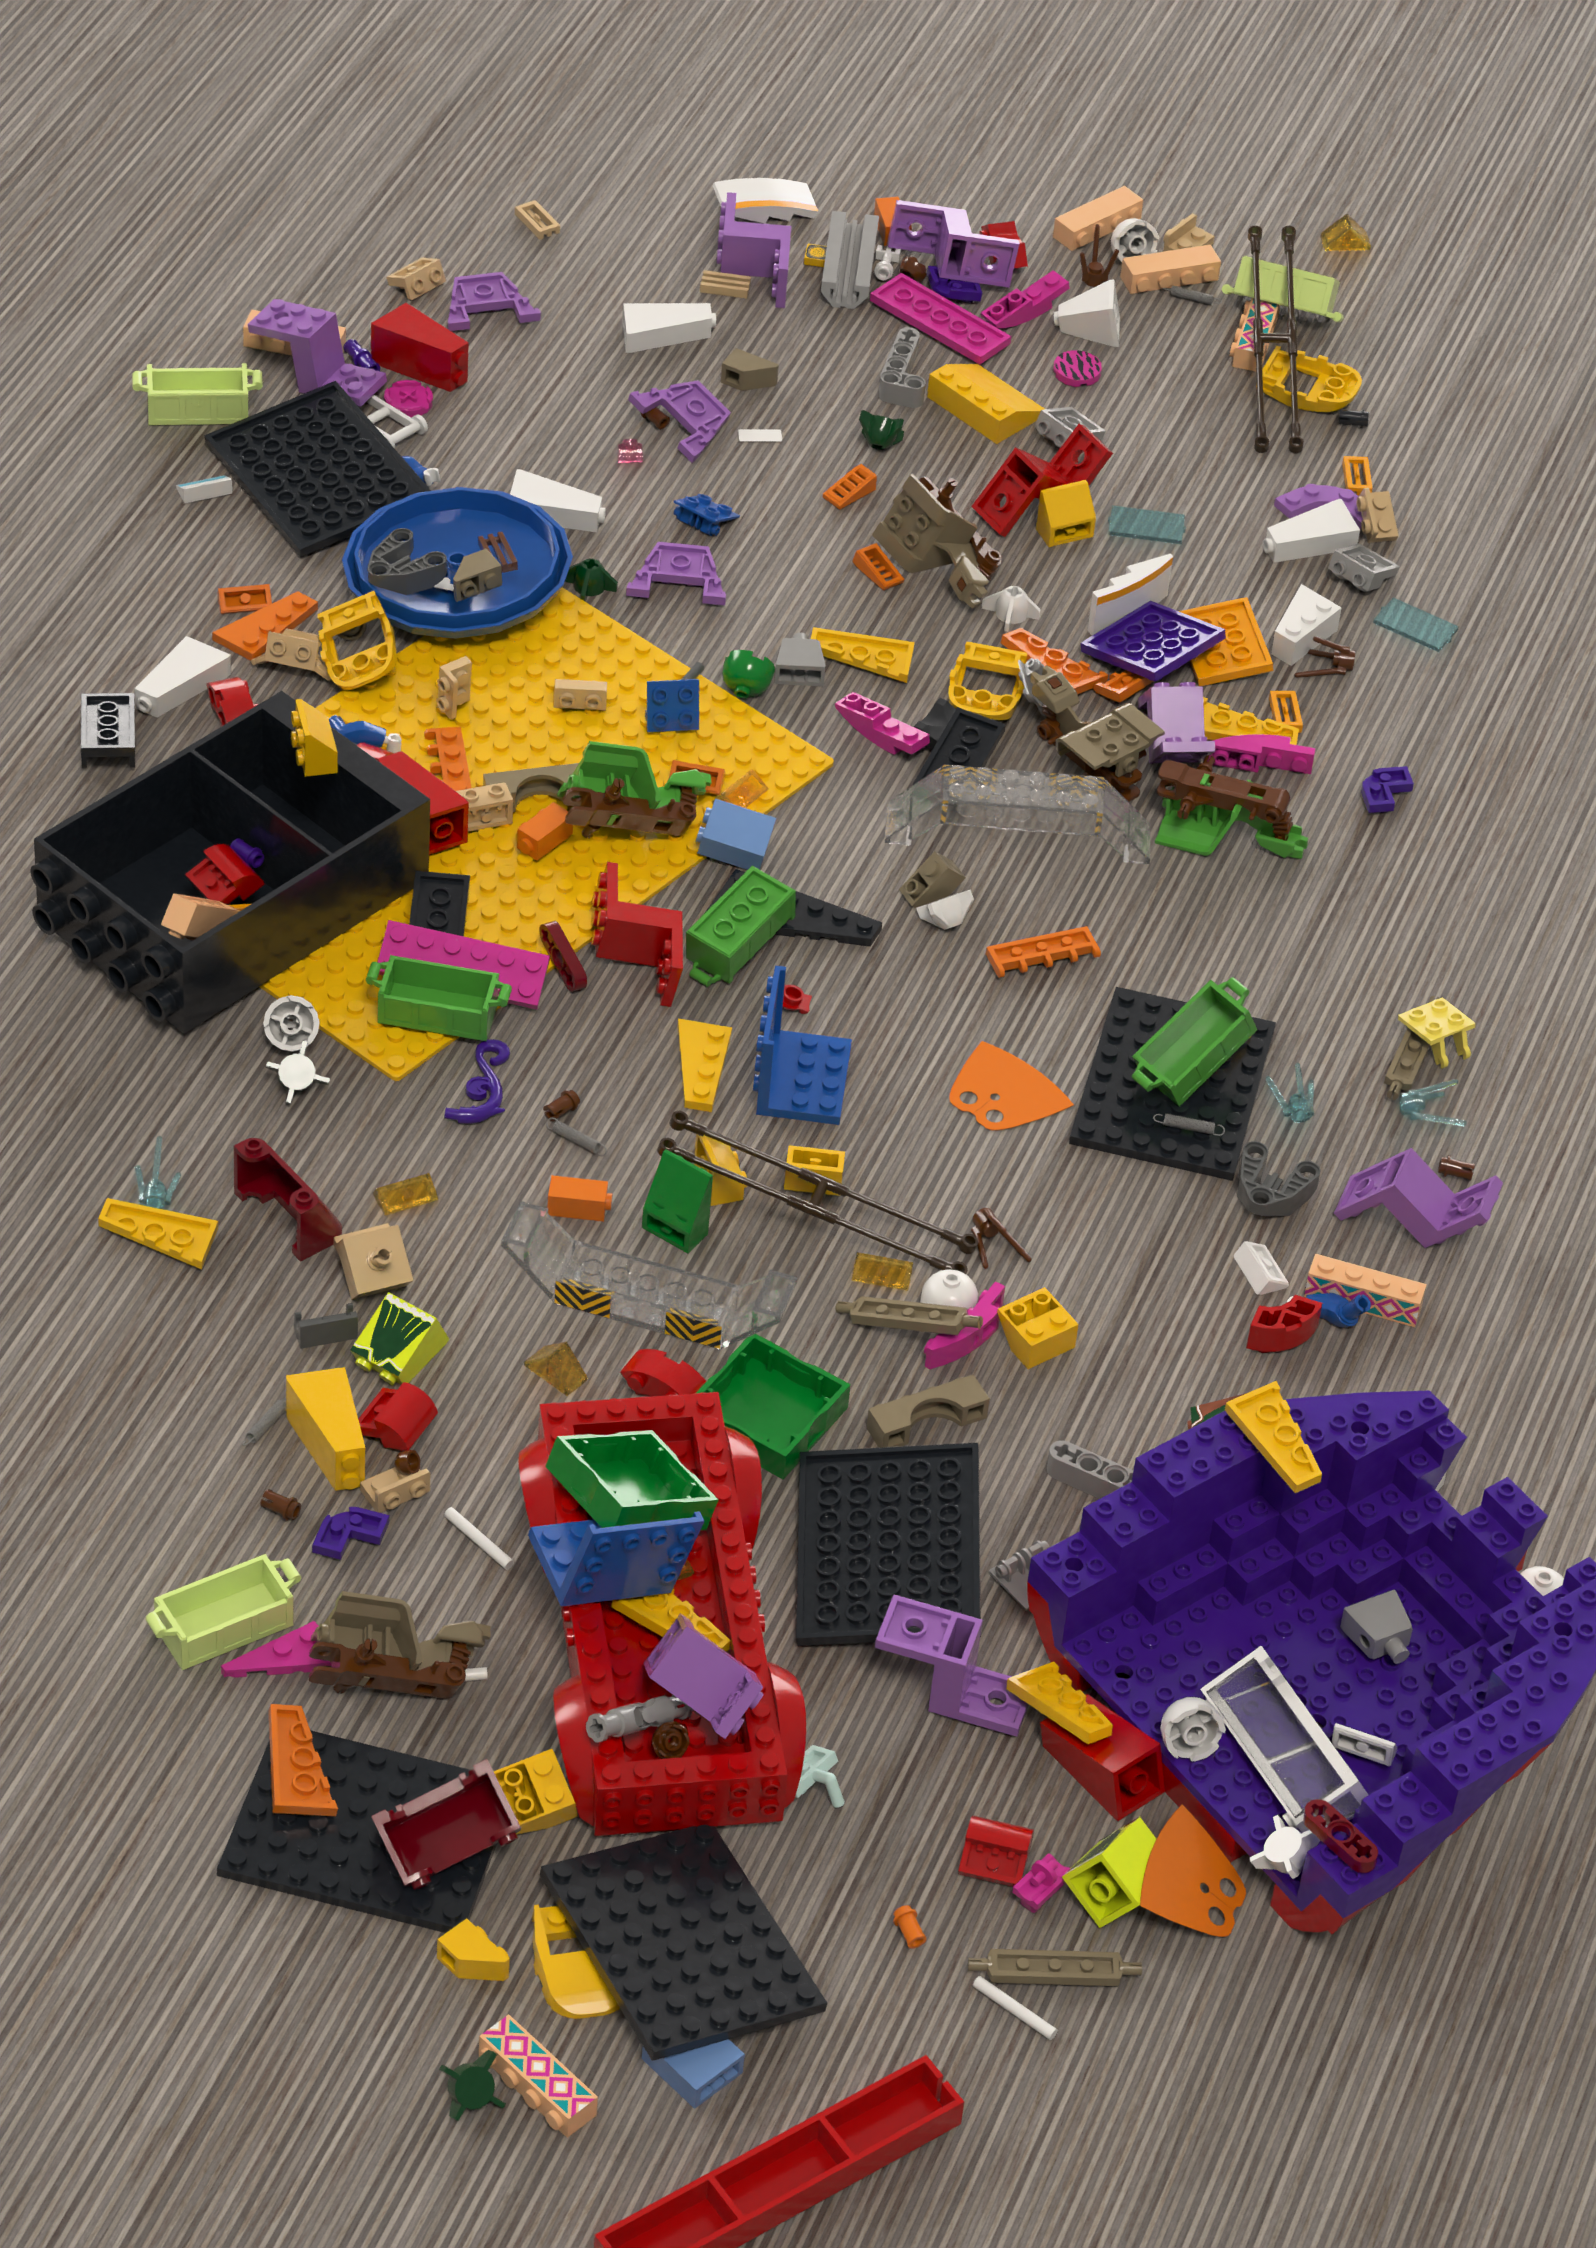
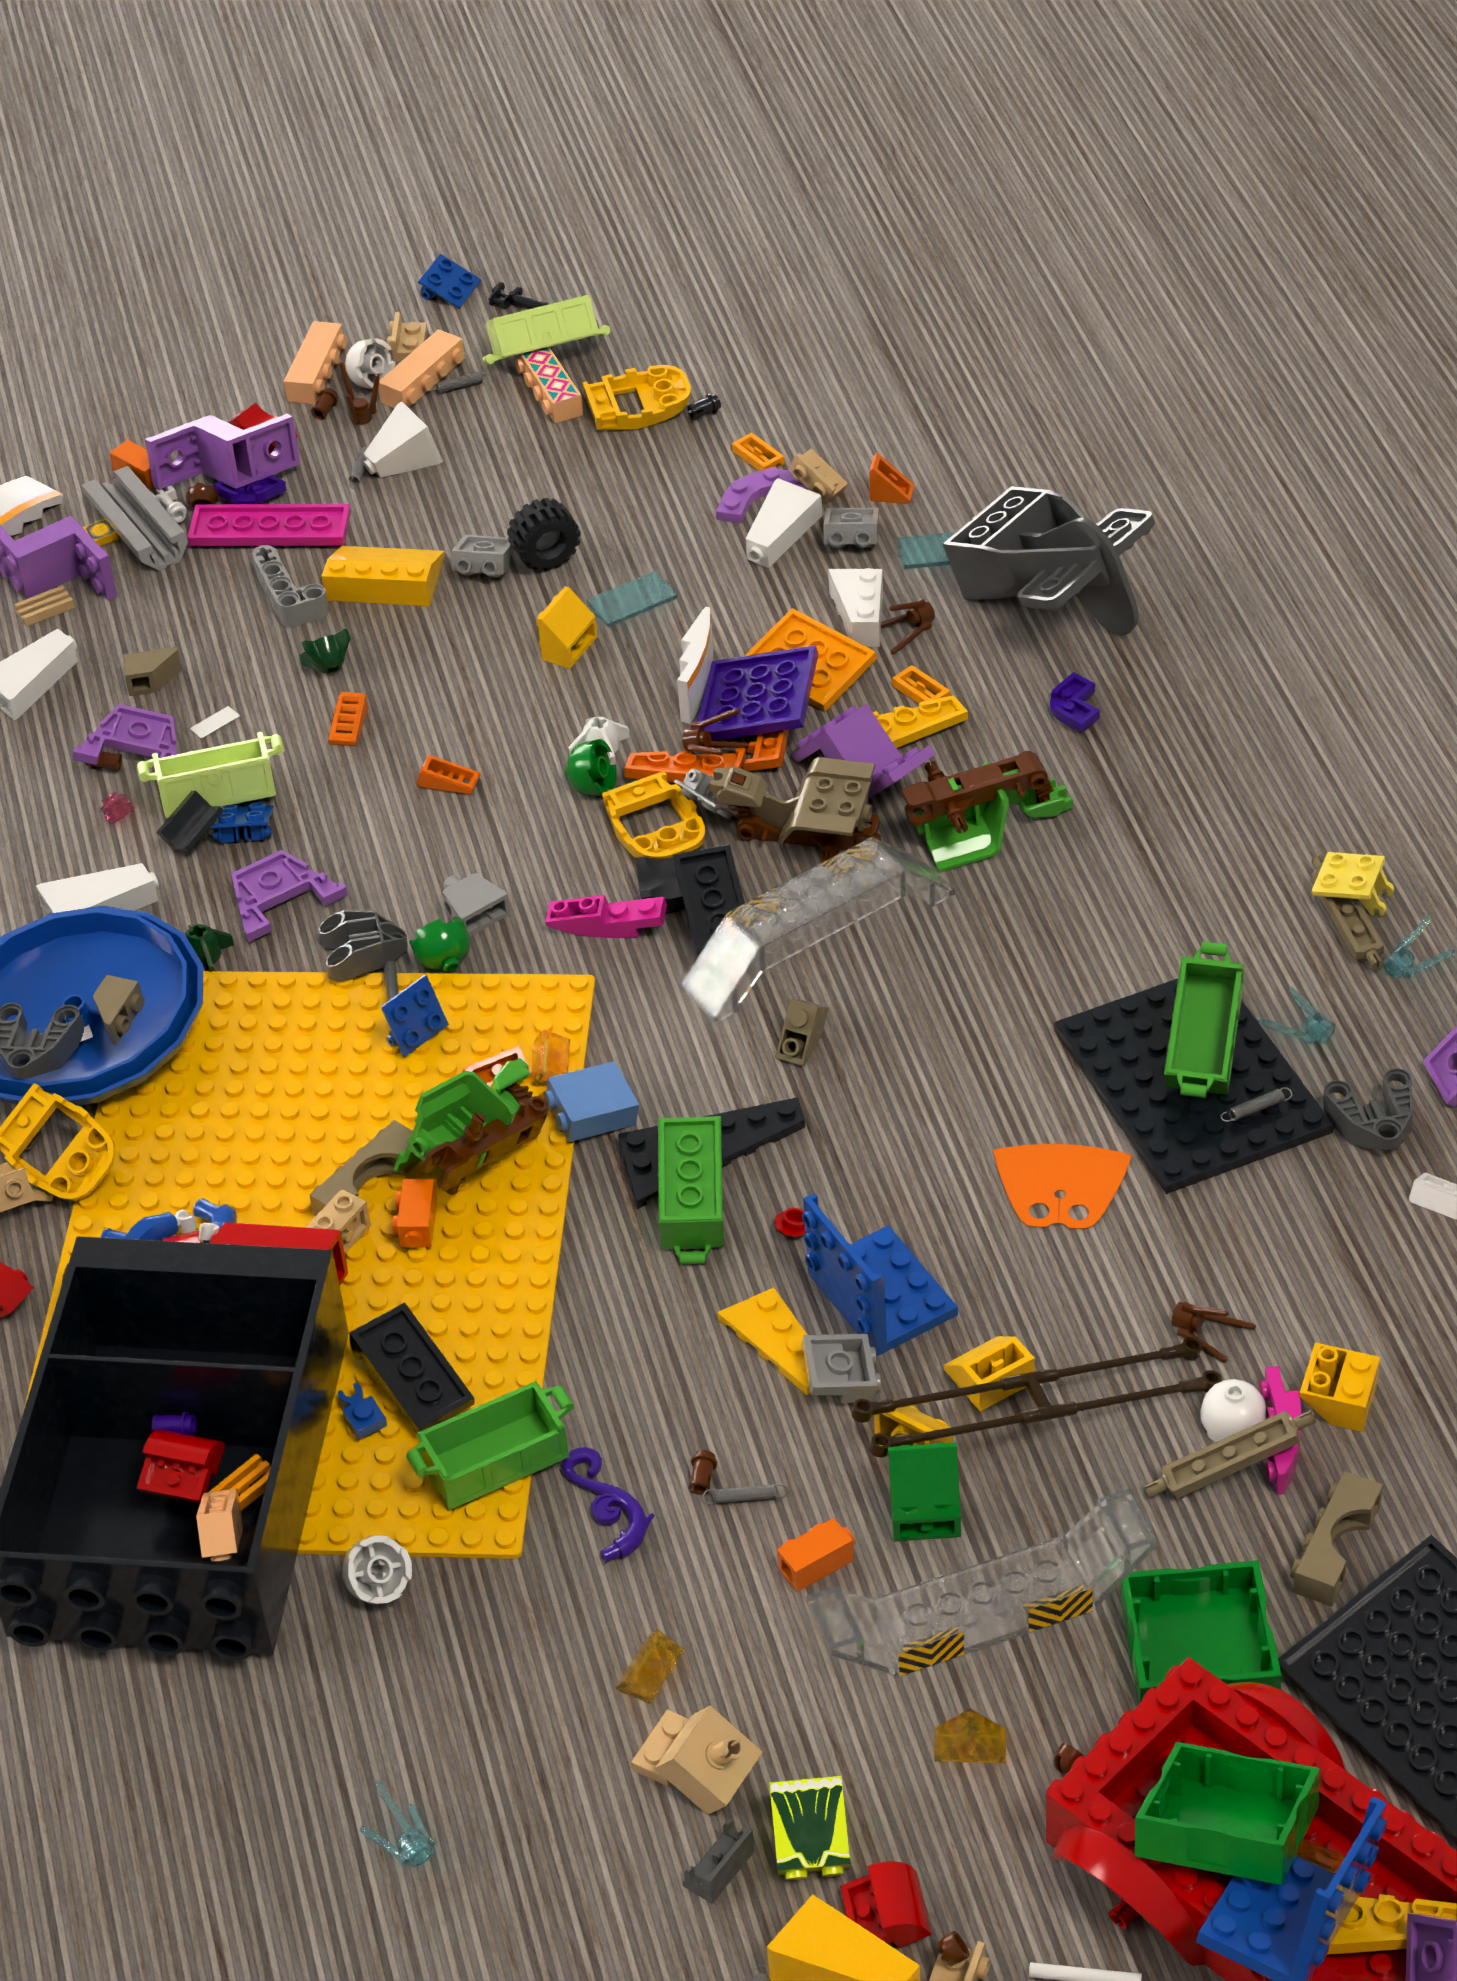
camera: 30 degrees left, 0 degrees up
(165, 1231) = (462, 1878): yellow wing -> none
(267, 1176) = (510, 1741): dark red windscreen -> none
(296, 1073) = (430, 1617): piece -> none
(314, 740) = (172, 1266): yellow slope -> none
(378, 927) = (360, 1413): none -> blue plate
(414, 750) = (215, 1215): none -> blue arm
(451, 756) = (252, 1199): orange hinge -> none
(454, 685) = (194, 1129): tan bracket -> none
(494, 541) = (109, 966): reddish brown tile -> none
(517, 967) = (473, 1385): dark pink plate -> none
(563, 956) = (583, 1337): dark red beam -> none
(580, 694) = (309, 1060): tan bracket -> none
(638, 934) = (611, 1254): red bracket -> none
(656, 1375) = (1085, 1679): red brick -> none
(663, 488) = (189, 822): none -> black panel
(694, 639) = (362, 943): none -> dark grey connector
(710, 467) = (219, 774): none -> yellowish green container
(717, 1099) = (841, 1366): none -> light grey plate
(872, 653) = (522, 857): yellow wing -> none
(882, 1271) = (1148, 1429): clear yellow slope -> none
(929, 533) = (473, 713): dark tan piece -> none
(948, 910) = (844, 1048): white piece -> none
(979, 620) = (590, 768): none -> green cylinder
(1024, 306) = (332, 467): dark pink slope -> none
(1025, 475) = (513, 614): red bracket -> none
(1042, 950) = (958, 1030): orange hinge -> none
(1045, 317) = (358, 468): none -> light grey piece
(1073, 253) = (326, 400): none -> reddish brown pin
(1076, 647) = (699, 739): none -> reddish brown plant
(1077, 368) = (430, 499): dark pink tile -> none
(1124, 423) = (528, 536): none -> black tyre
(1257, 750) = (952, 730): dark pink slope -> none
(1263, 211) = (448, 281): none -> blue hinge
(1289, 337) = (596, 366): dark brown bar -> none
(1303, 255) = (514, 297): none -> black piece
(1345, 235) = (531, 263): clear yellow slope -> none
(1426, 551) = (888, 483): none -> orange slope
(1466, 657) = (1047, 552): none -> dark grey brick

